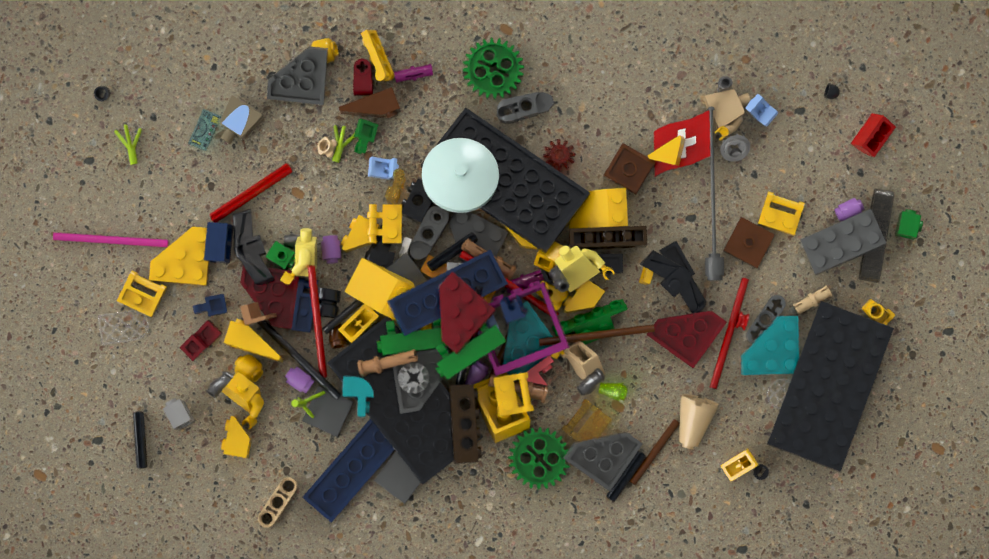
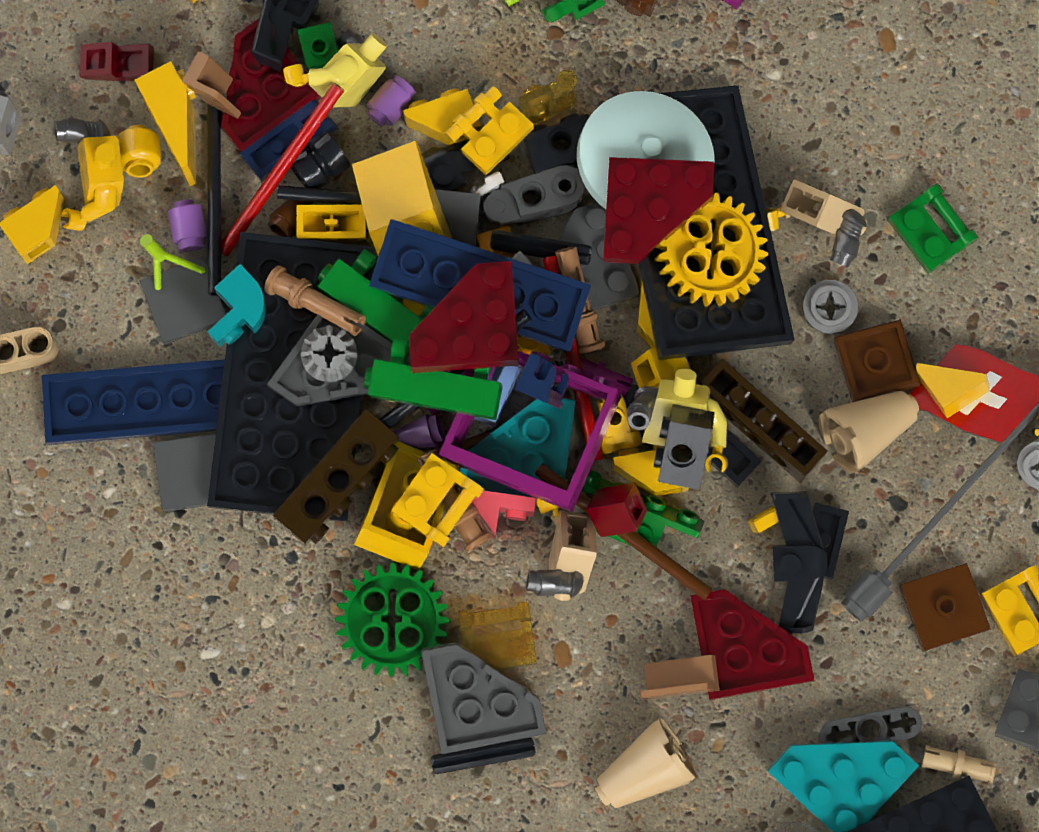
camera: 45 degrees right, 5 degrees down
(214, 306) = (174, 33): dark blue plate -> none
(382, 168) = (553, 57): light blue bracket -> none
(483, 194) = (651, 202): none -> dark red plate
(501, 53) = (793, 78): green gear -> none
(537, 178) = (741, 254): none -> yellow gear
(540, 104) = (840, 170): dark grey piece -> none
(551, 156) = (808, 247): clear red gear -> none
(552, 129) = (825, 213): none -> torso
(586, 329) = (617, 509): none -> dark red panel
(589, 154) = (841, 296): none -> light grey gear
(590, 278) = (686, 427): none -> brick
(599, 98) = (923, 234): none -> green plate
(602, 209) = (791, 378): yellow slope -> none
(616, 391) = (577, 629): clear neon green cone -> none
(651, 200) = (866, 427): none -> tan cone
(654, 452) = (551, 760): reddish brown bar -> none
(673, 371) = (680, 677): none -> medium nougat panel
(729, 333) = (802, 701): red piece -> none
(742, 320) = (836, 700): red bush -> none

